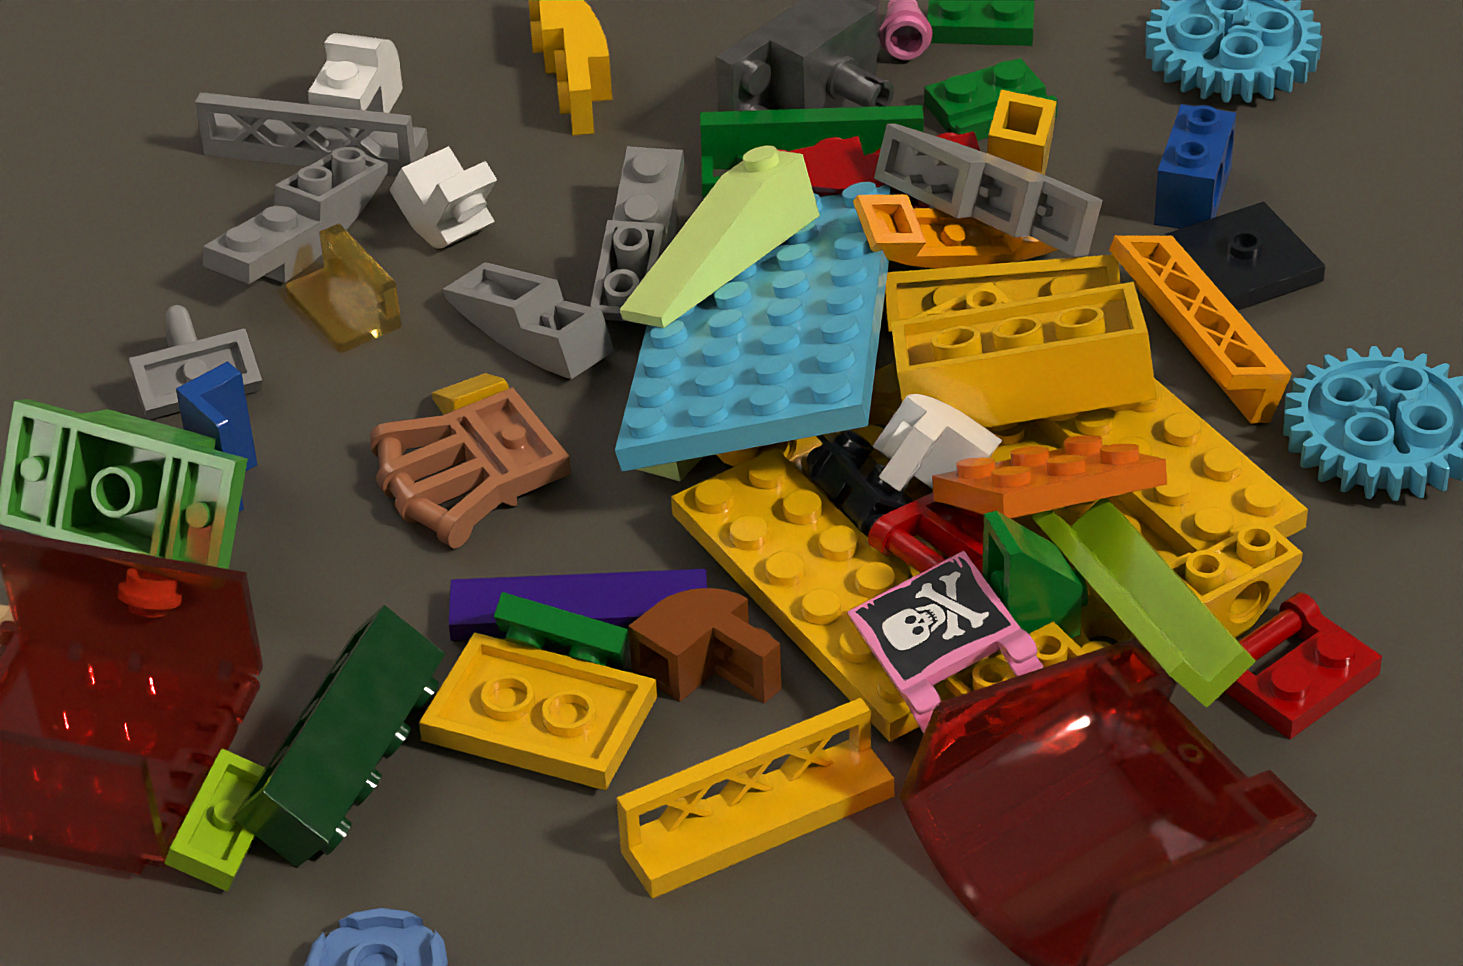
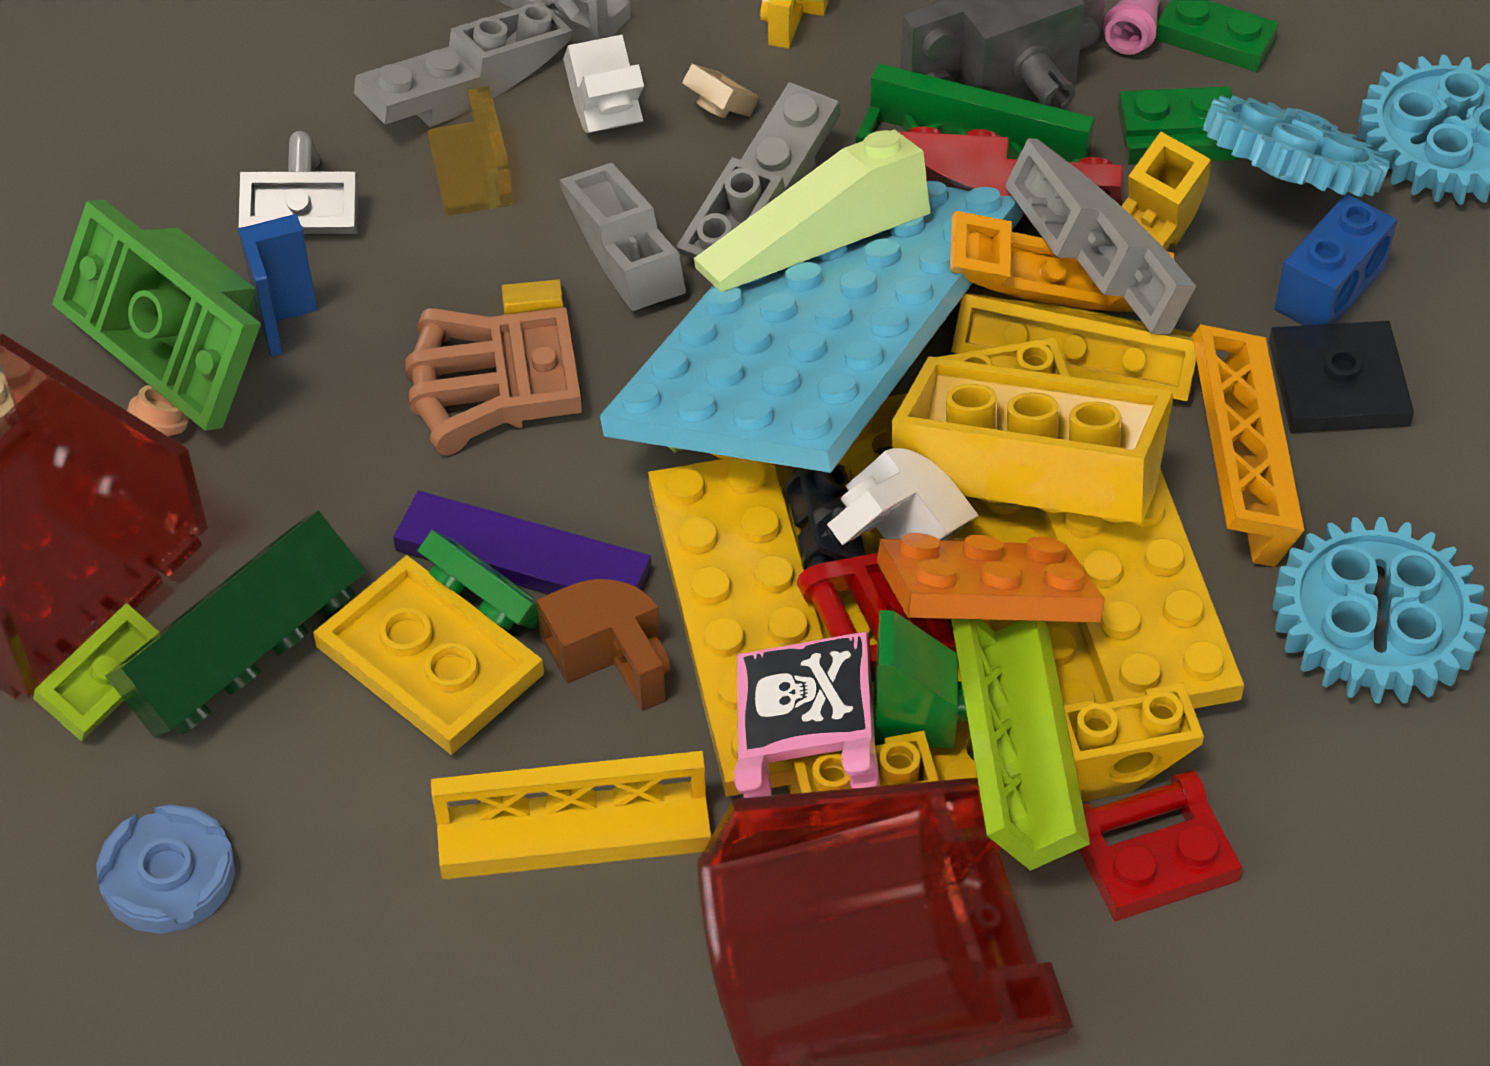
camera: 20 degrees right, 10 degrees up
(556, 180) = (719, 93): none -> tan plate
(1113, 80) = (1296, 146): none -> medium azure gear

